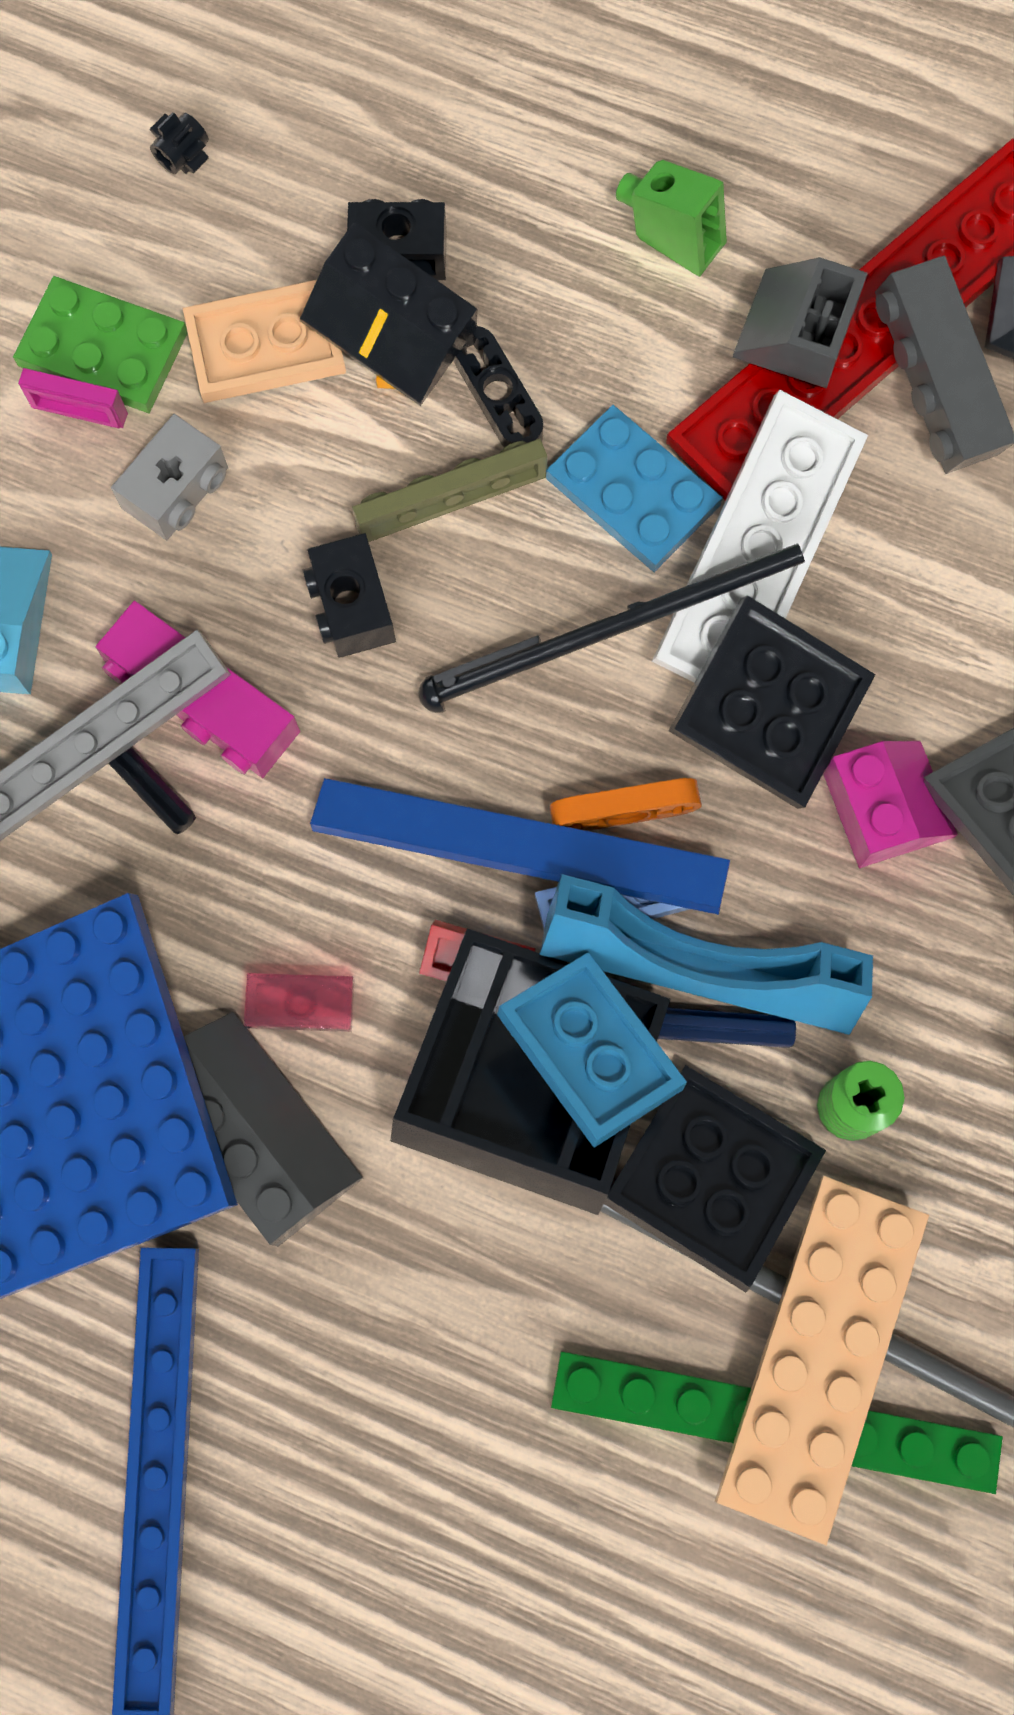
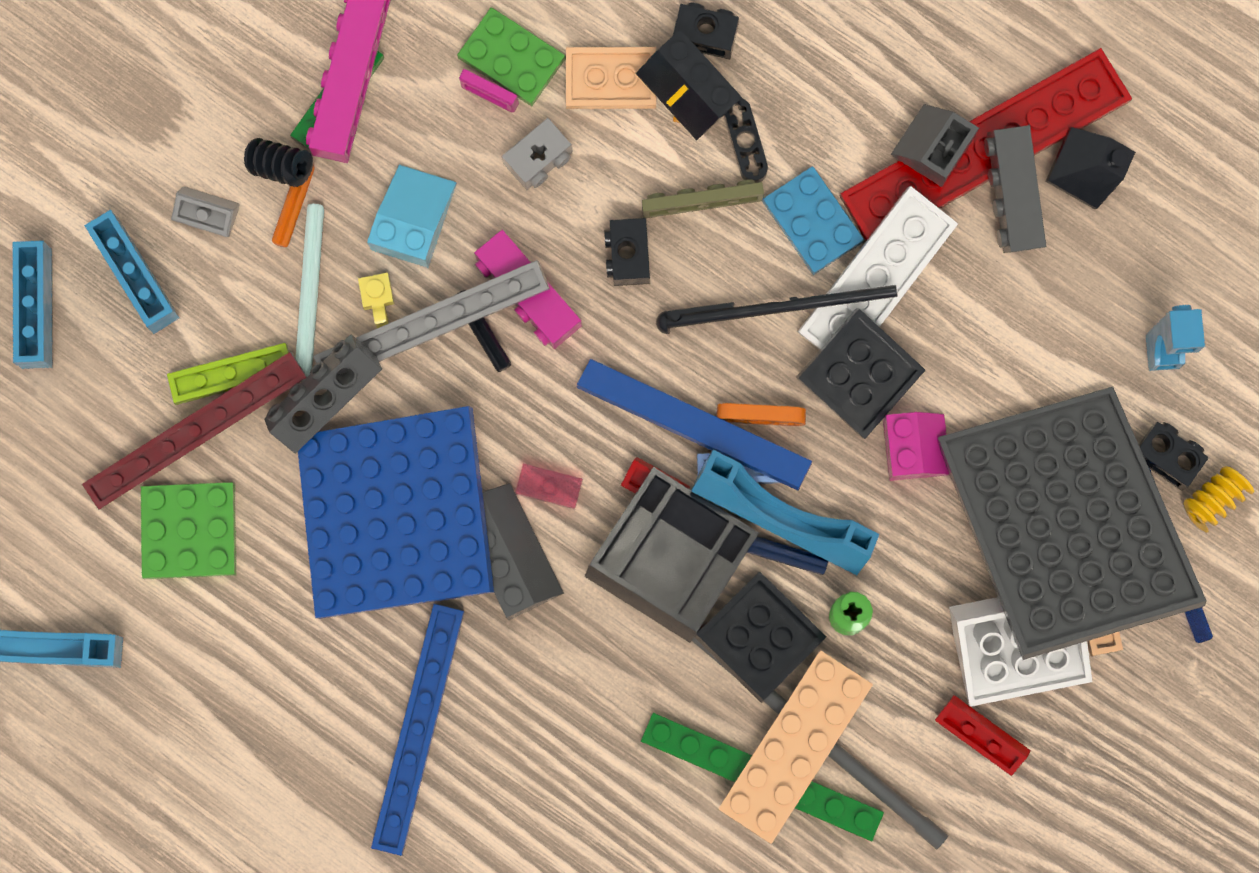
camera: 15 degrees right, 5 degrees up
(591, 1049) = (706, 550): dark azure plate -> none
(677, 213) = (879, 53): bright green torso -> none

